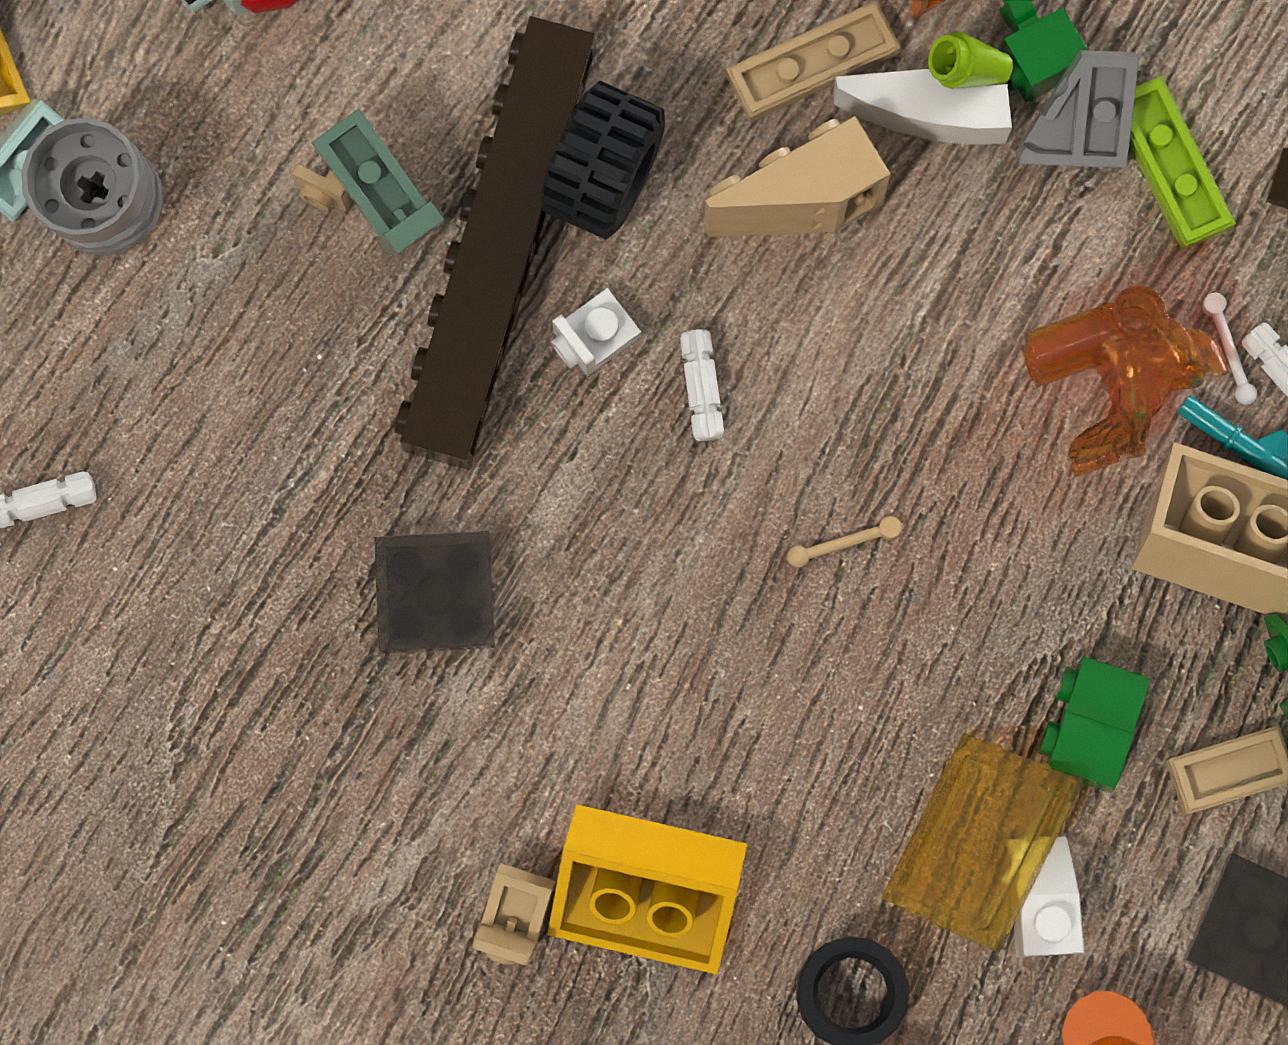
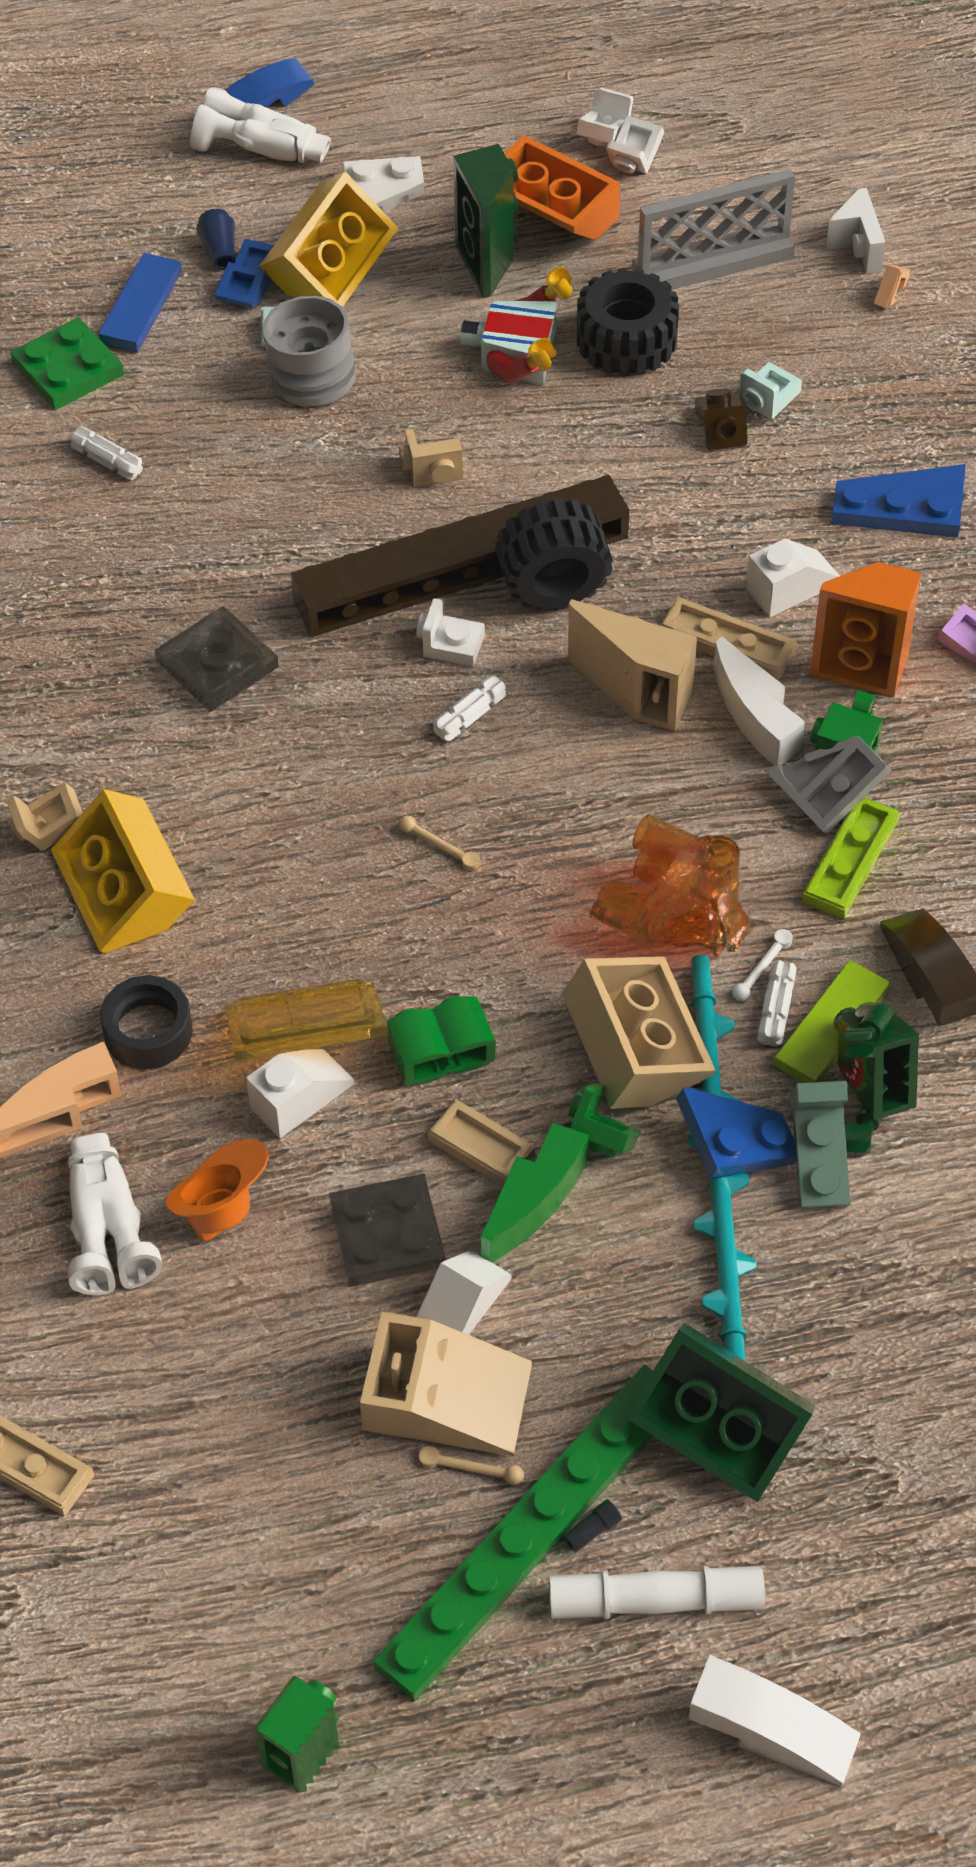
camera: 50 degrees right, 25 degrees down
(376, 183) = (428, 481): sand green bracket -> none
(967, 62) = (796, 688): lime cone -> none

